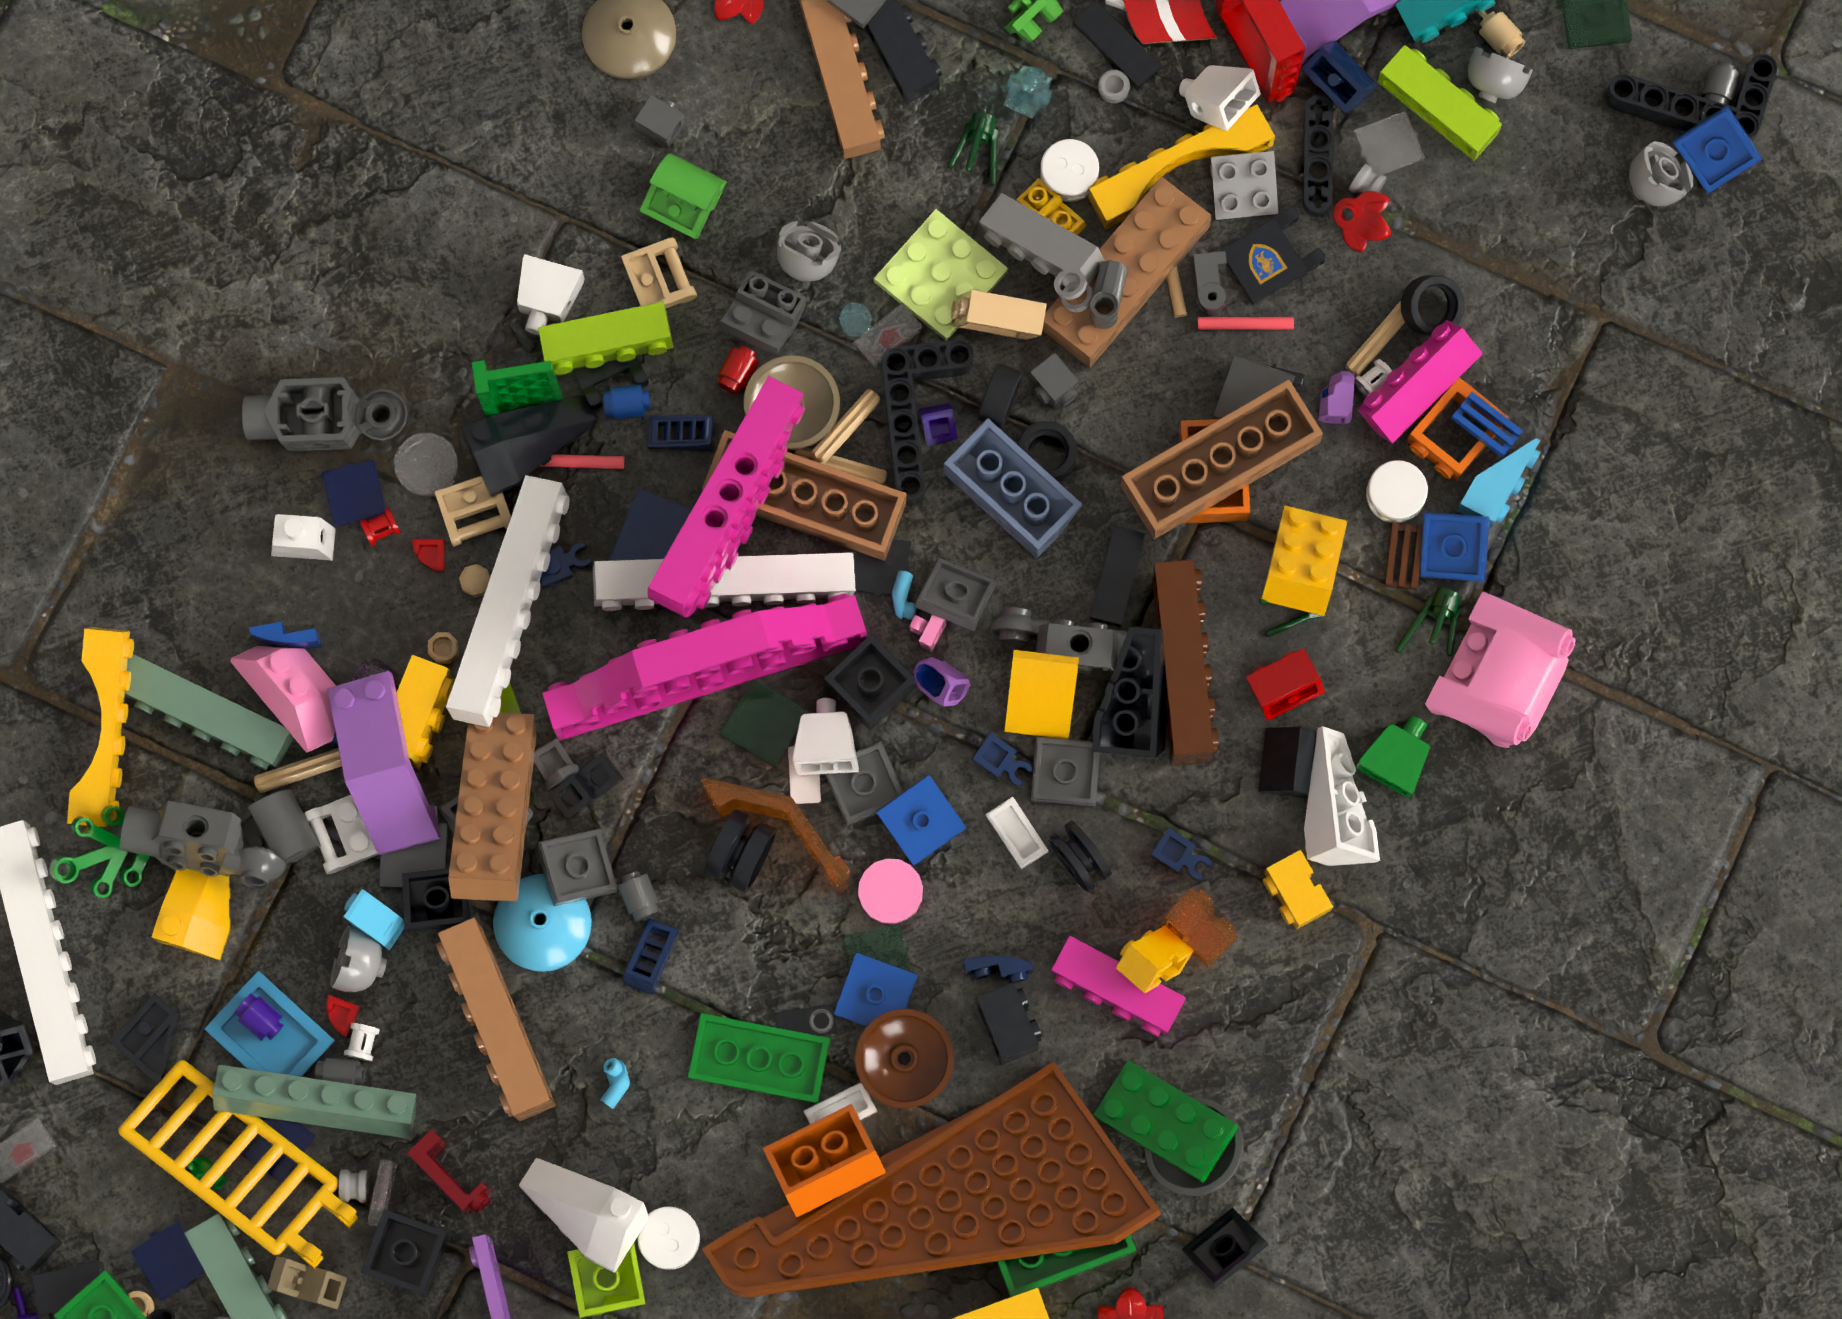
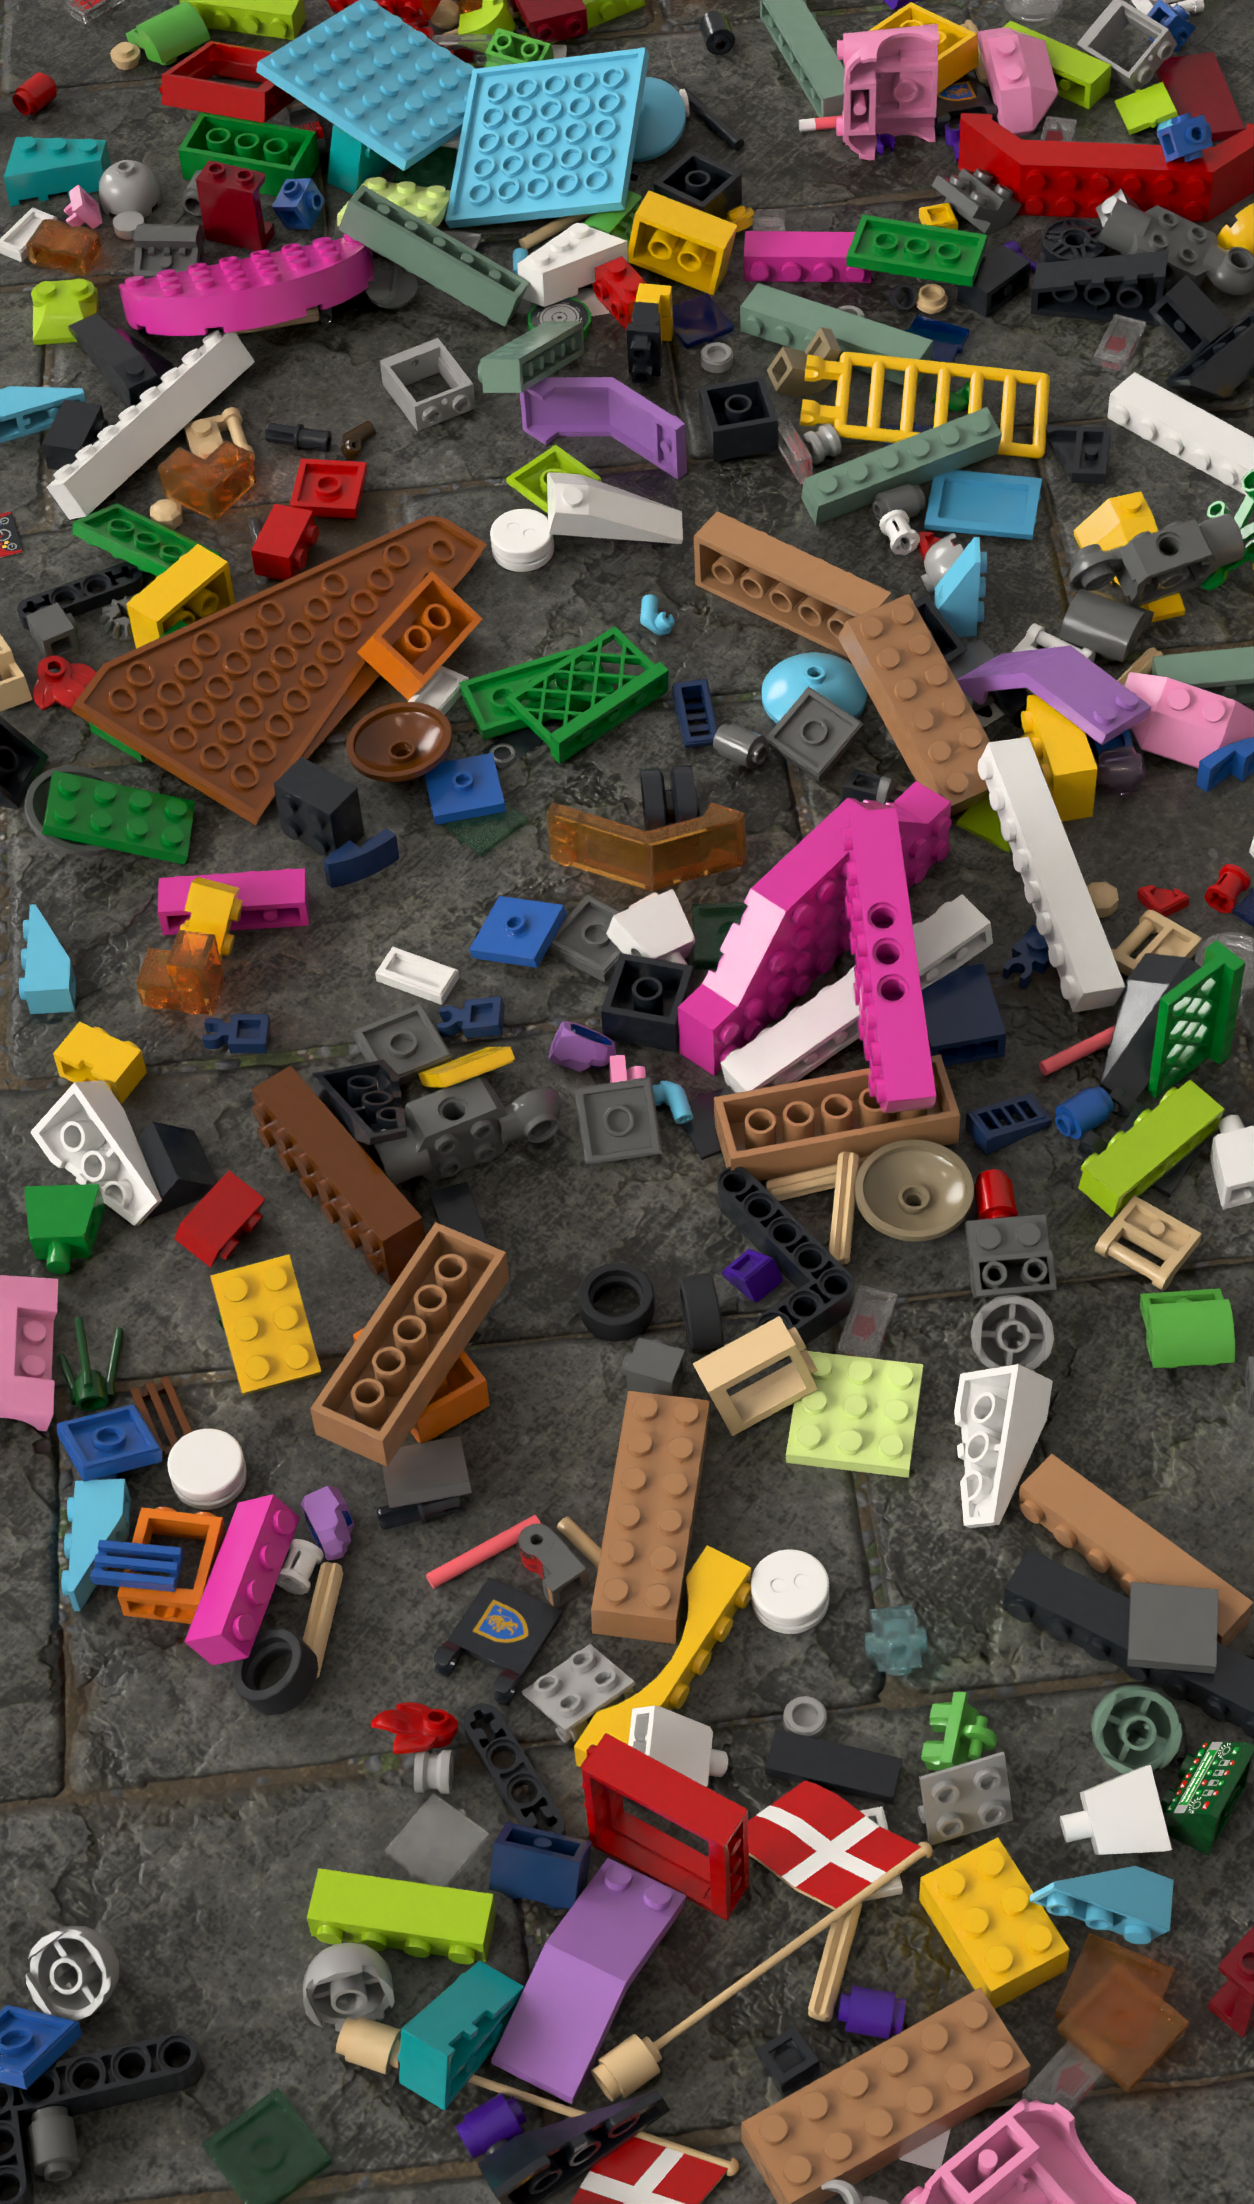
camera: 150 degrees right, 25 degrees down
(259, 1017) = (1000, 497): dark purple brick -> none
(424, 1153) = (744, 472): dark red panel -> none
(443, 648) = (1082, 831): tan tile -> none
(723, 992) = (601, 716): none -> green fence
(855, 319) = (912, 1320): clear light blue tile -> none
(863, 193) = (999, 1424): none -> white wedge
(890, 891) = (507, 869): bright pink tile -> none
(980, 131) = (920, 1578): dark green plant -> none
(1011, 488) = (628, 1229): sand blue slope -> none
(1044, 245) = (754, 1471): light grey hinge -> none
(1050, 205) = (763, 1536): yellow slope -> none
(1079, 856) = (337, 965): black wheel -> none
(1108, 293) = (648, 1442): dark grey piece -> none
(1292, 1005) = (49, 974): none -> medium azure slope

